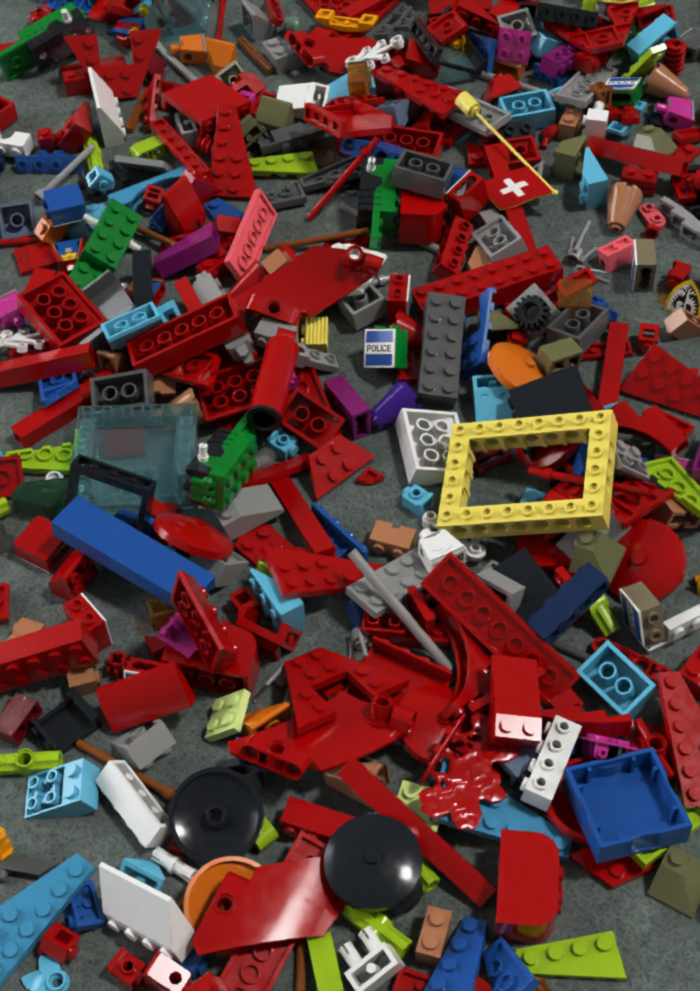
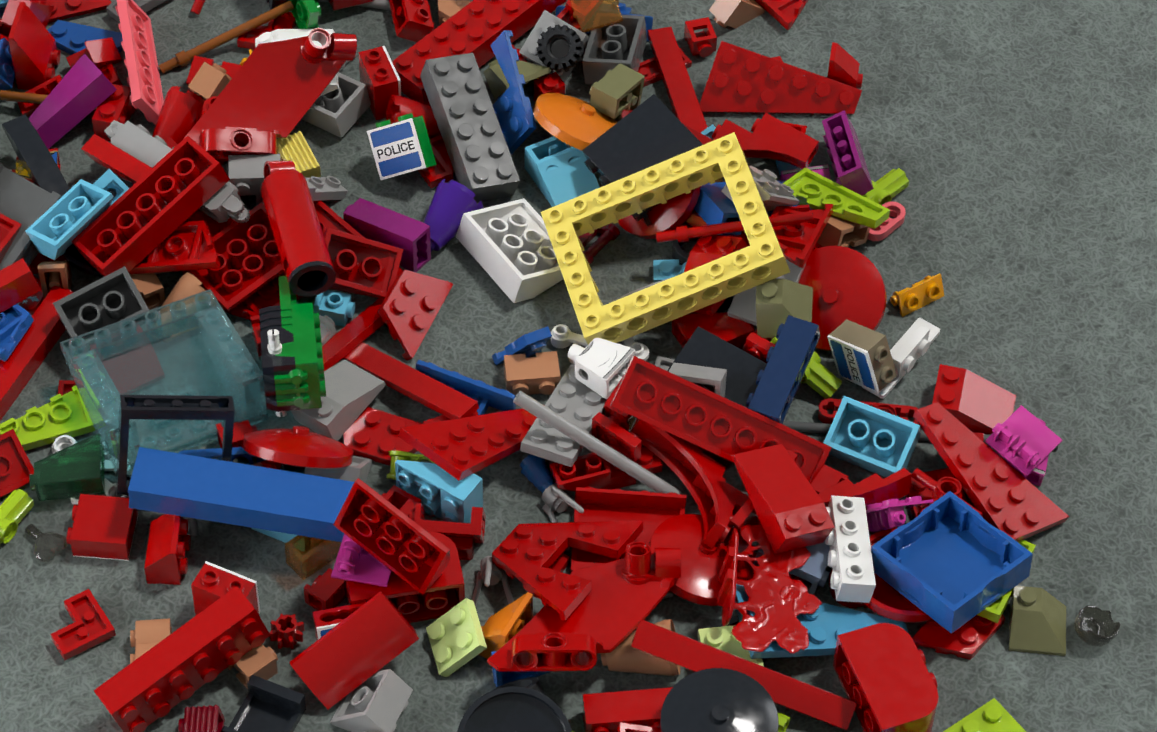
camera: 30 degrees left, 0 degrees up
(369, 476) = (459, 310): red tile -> none
(398, 517) = (527, 344): none -> blue wing
(417, 500) = (533, 316): medium azure brick -> none

